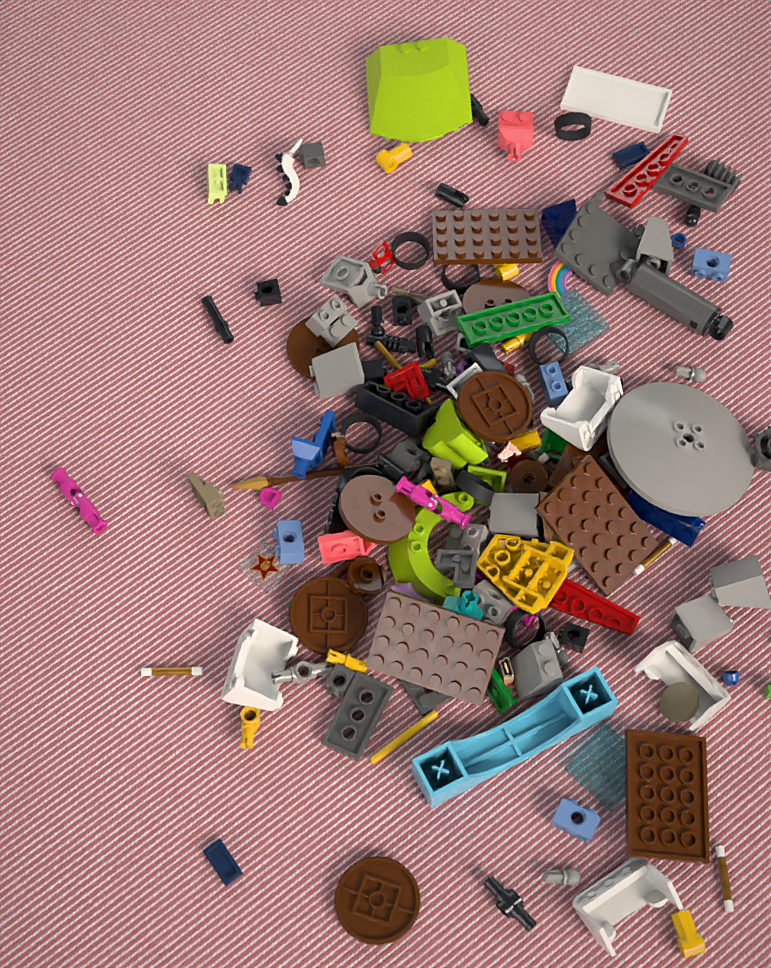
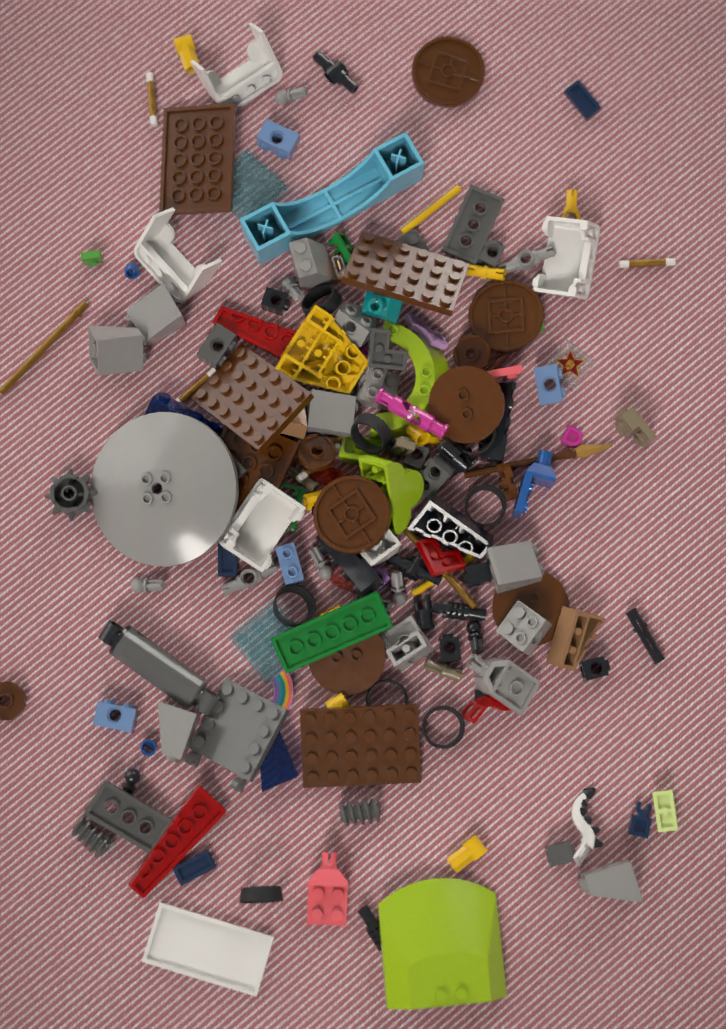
camera: 175 degrees right, 15 degrees up
(271, 129) = (611, 881): none -> light grey slope
(286, 316) = (572, 636): none -> medium nougat wedge
(451, 195) = (404, 804): black hinge -> none
(487, 187) = (359, 812): none -> dark grey piece
(640, 583) = (221, 336): none -> dark grey brick
(679, 702) = (181, 242): dark tan tile -> none

